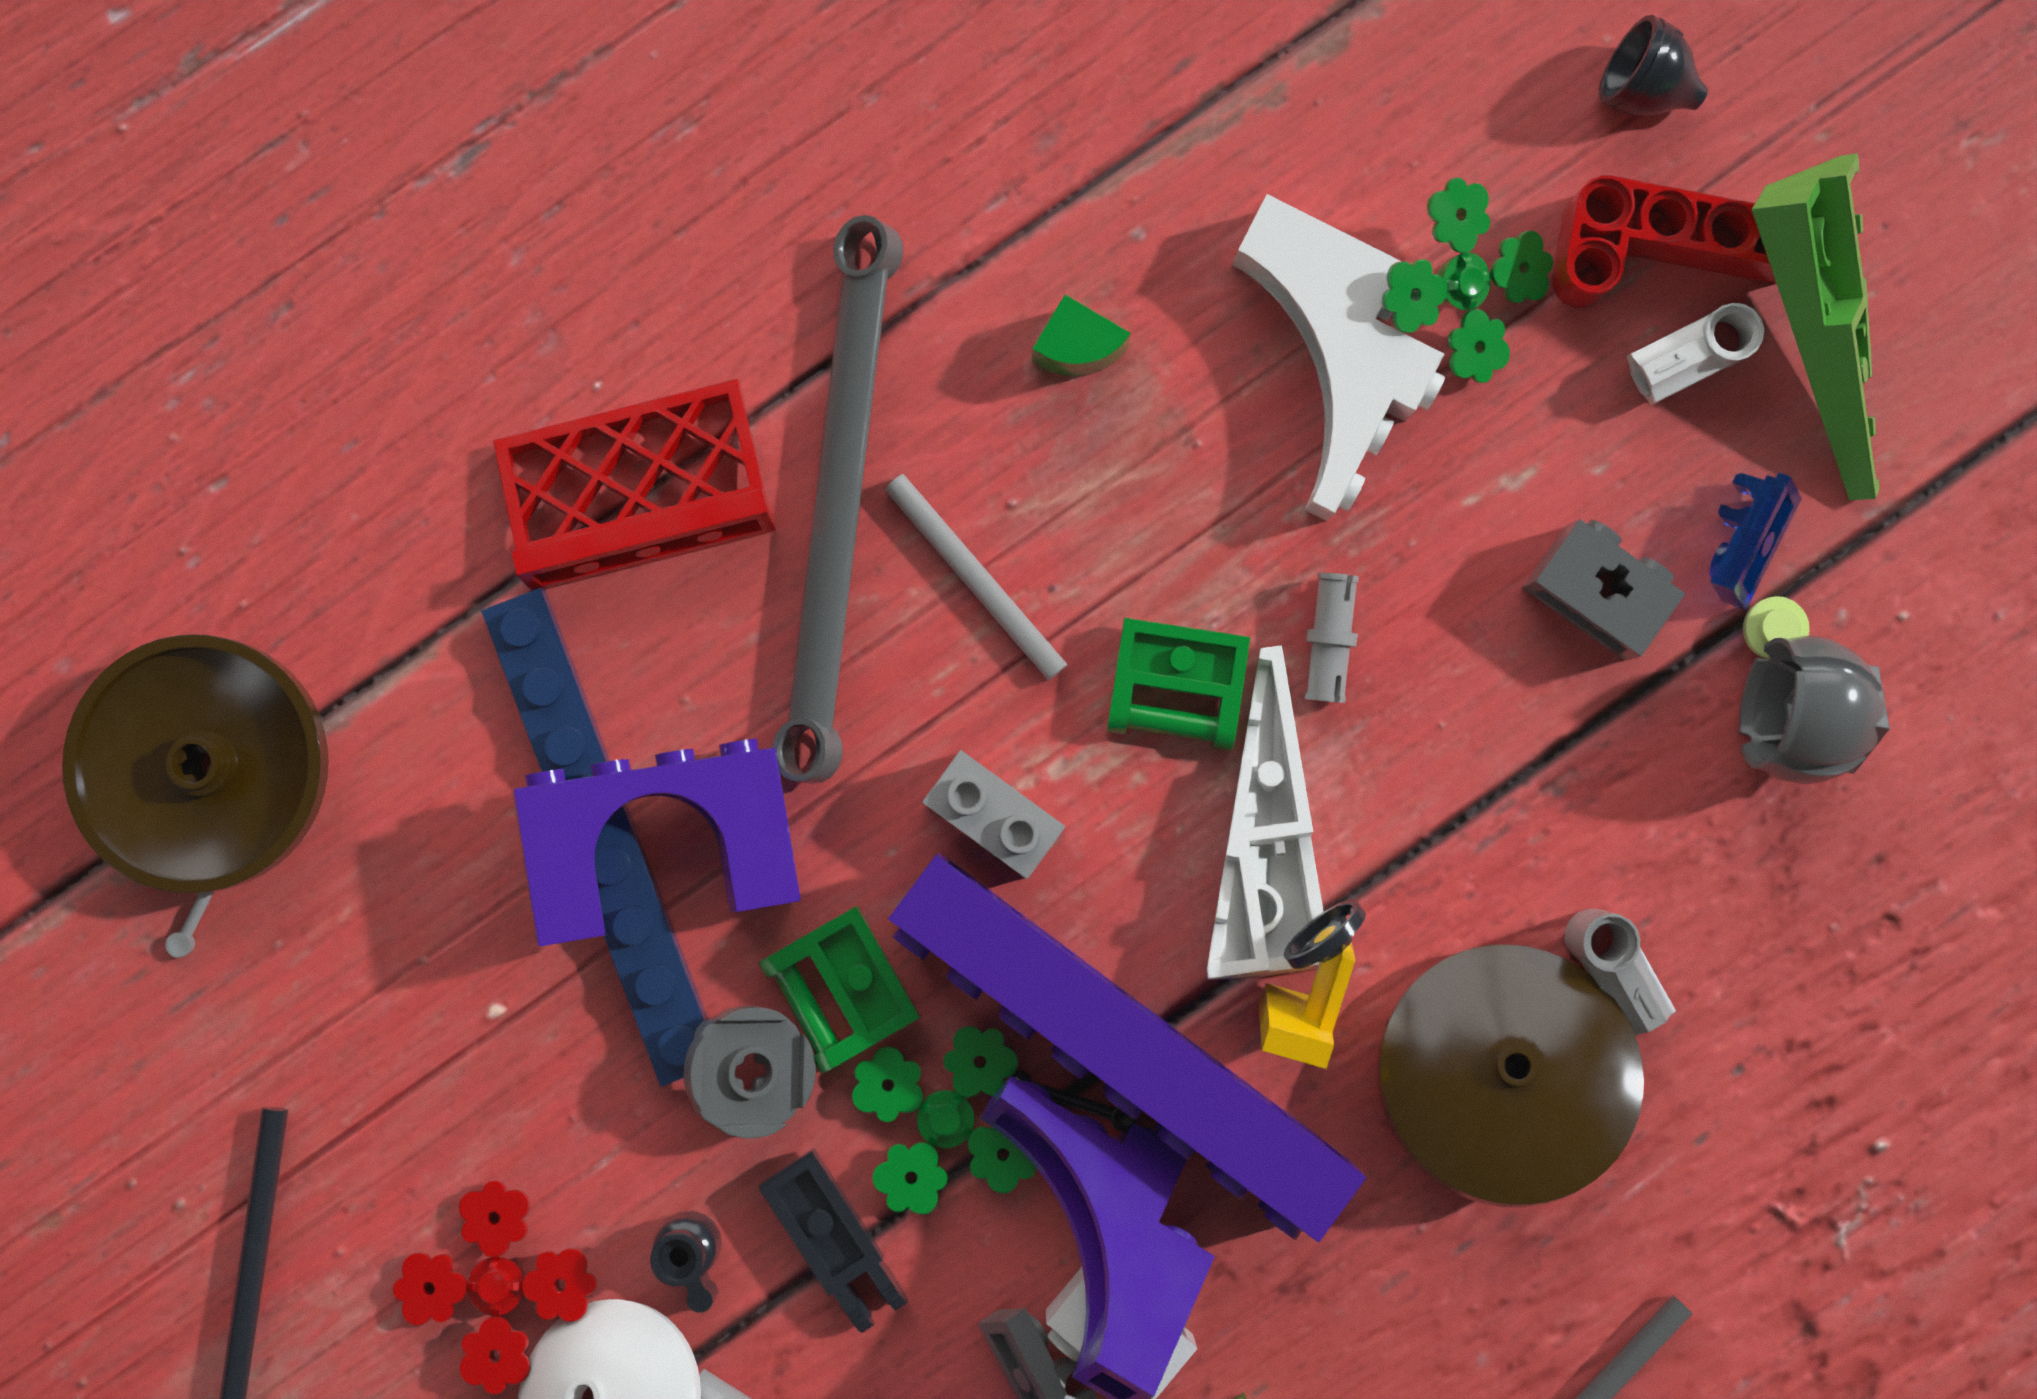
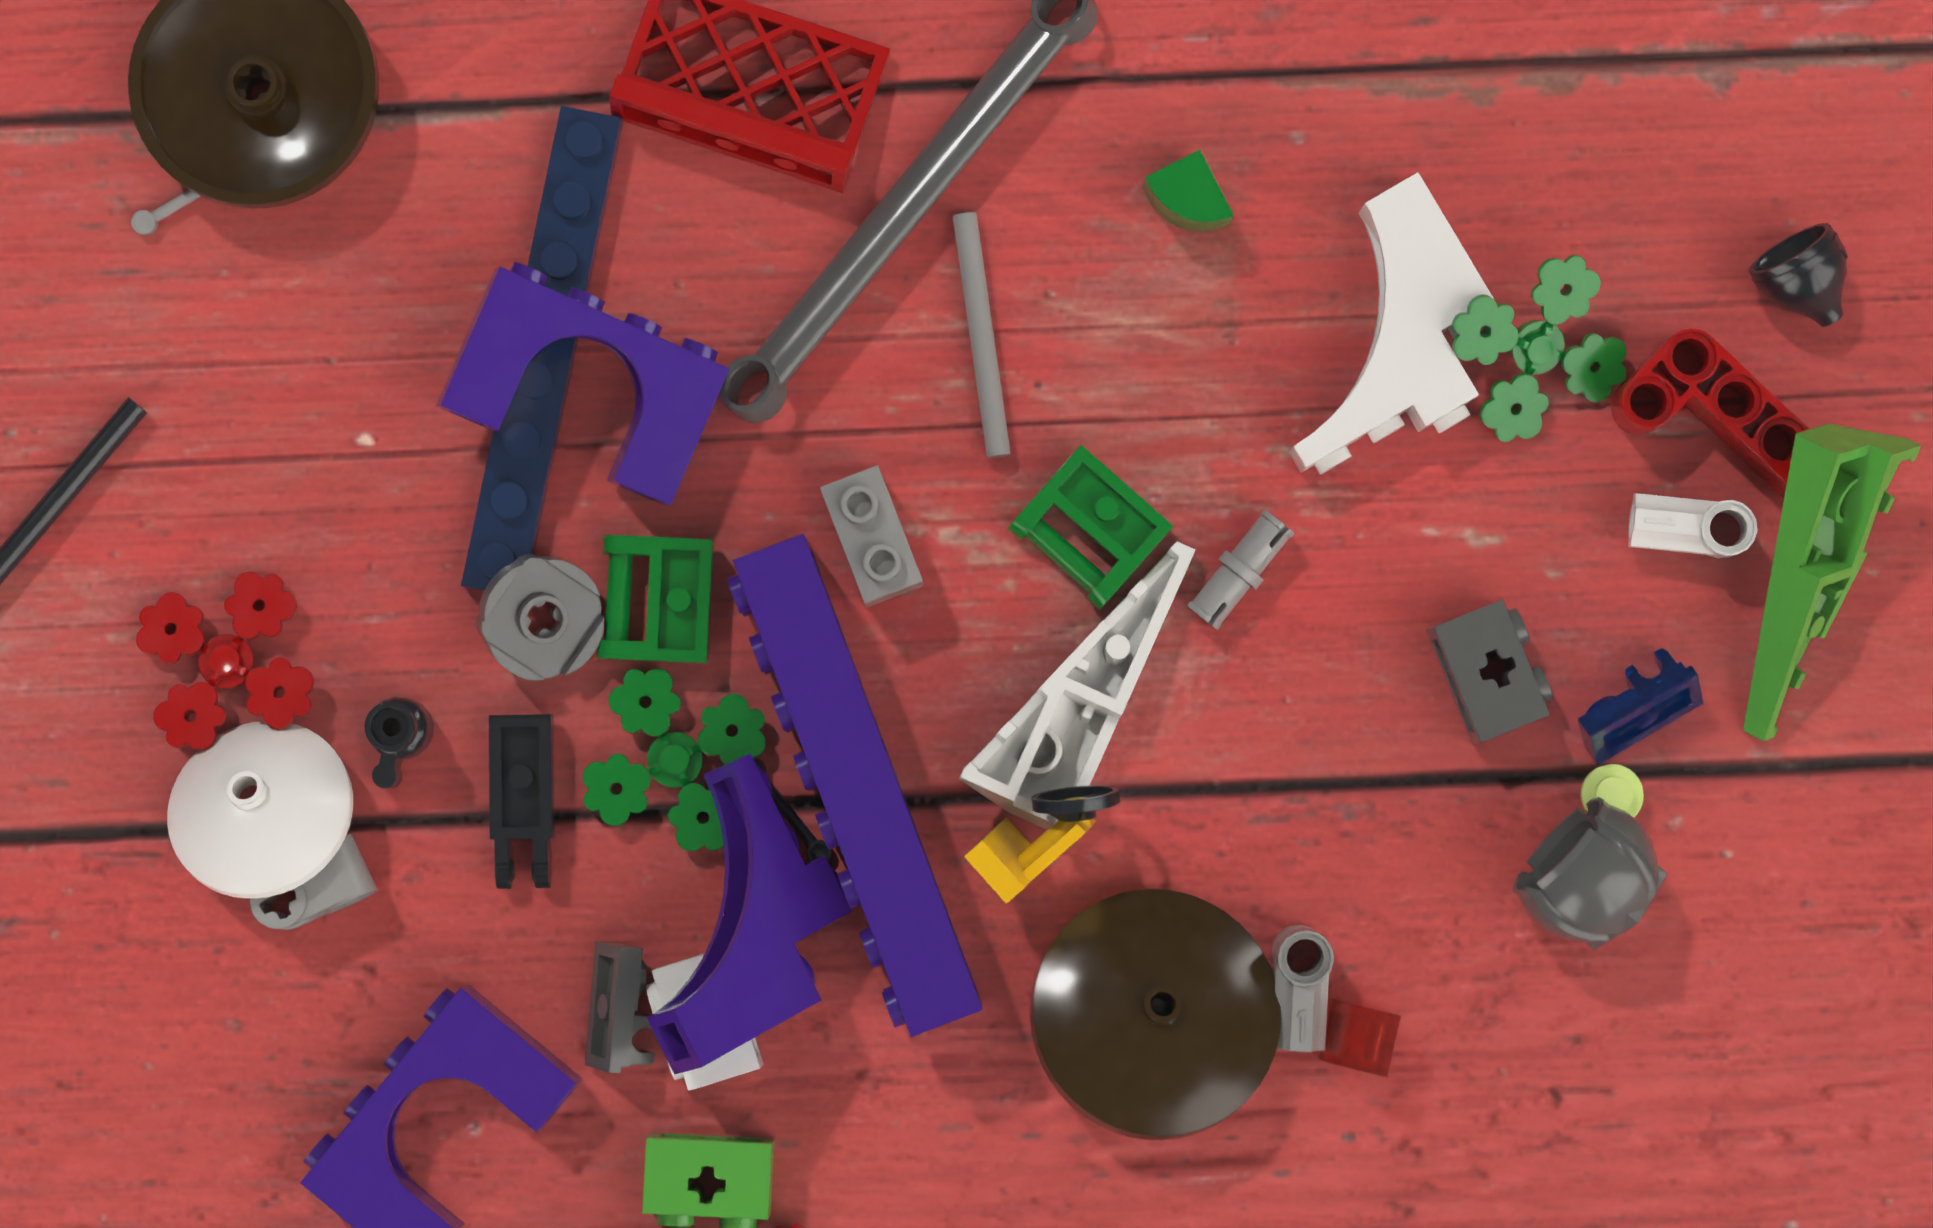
camera: 30 degrees right, 0 degrees up
(1701, 978) = (1360, 1037): none -> clear red brick

